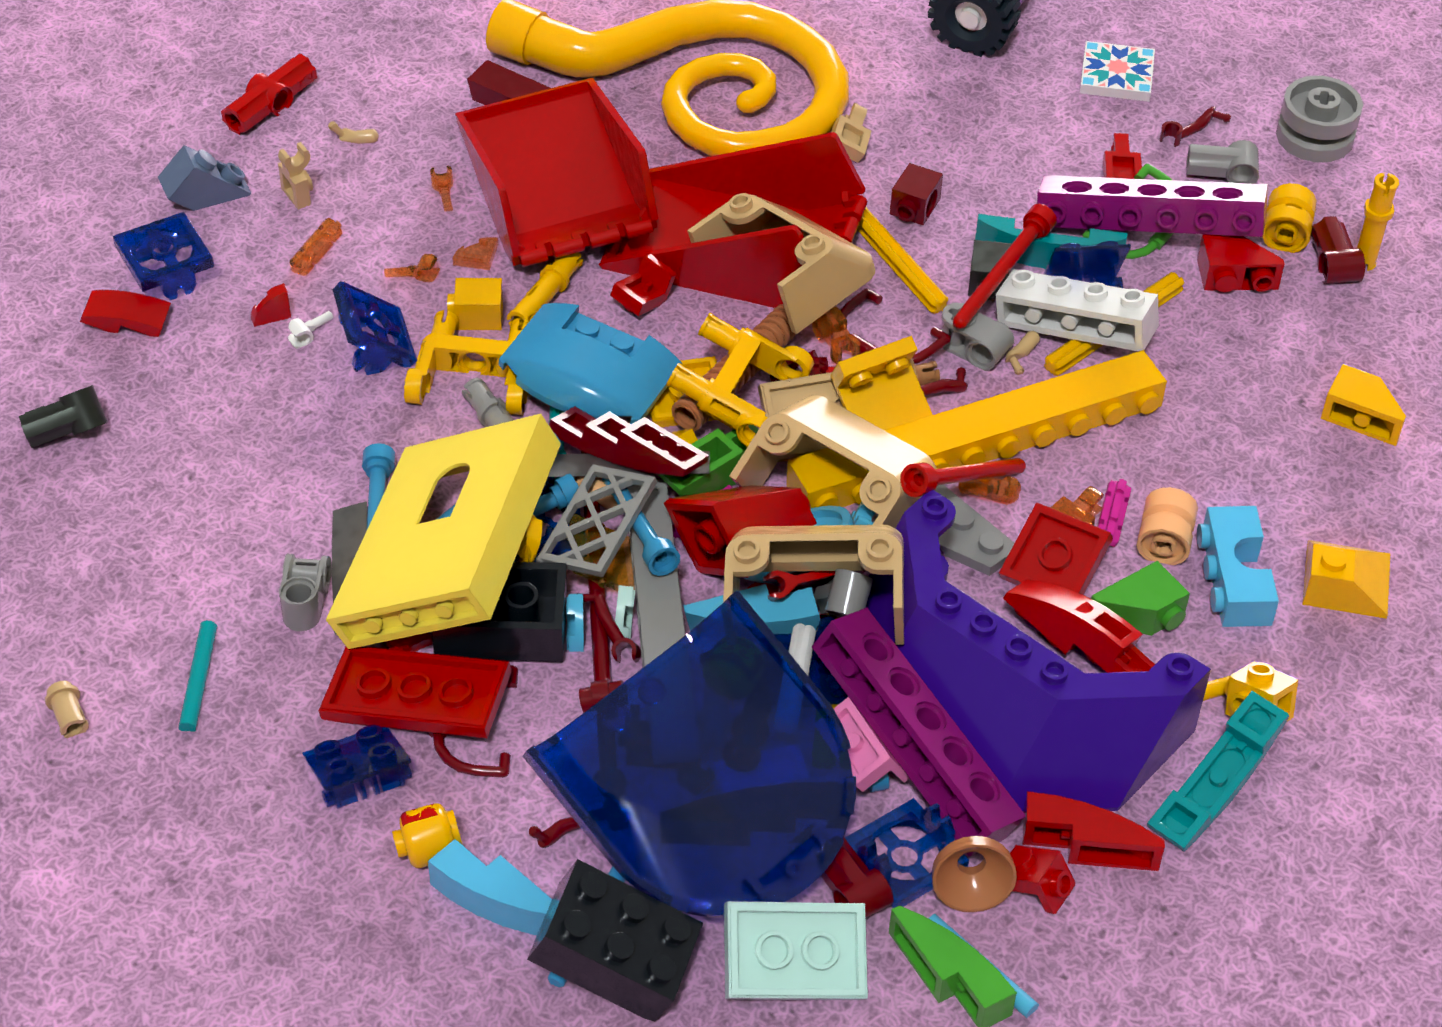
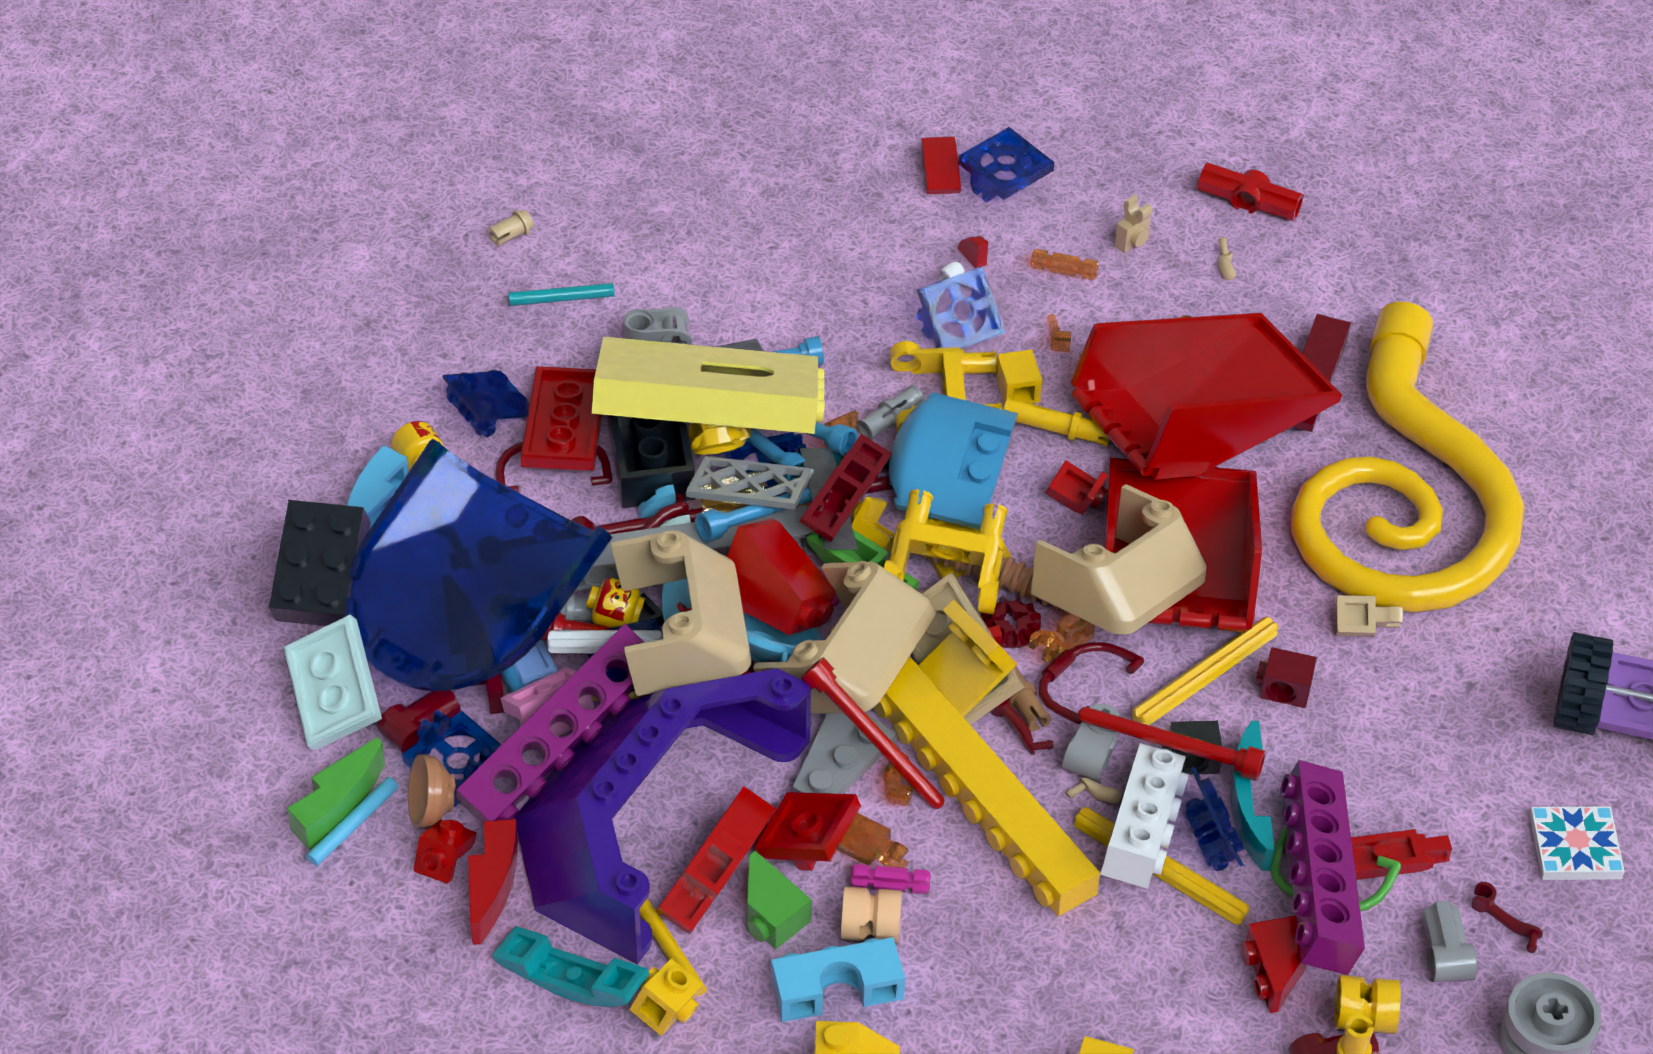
camera: 80 degrees right, 0 degrees up
(70, 414) = (807, 156): pearl dark grey piece -> none
(201, 181) = (1113, 172): sand blue slope -> none

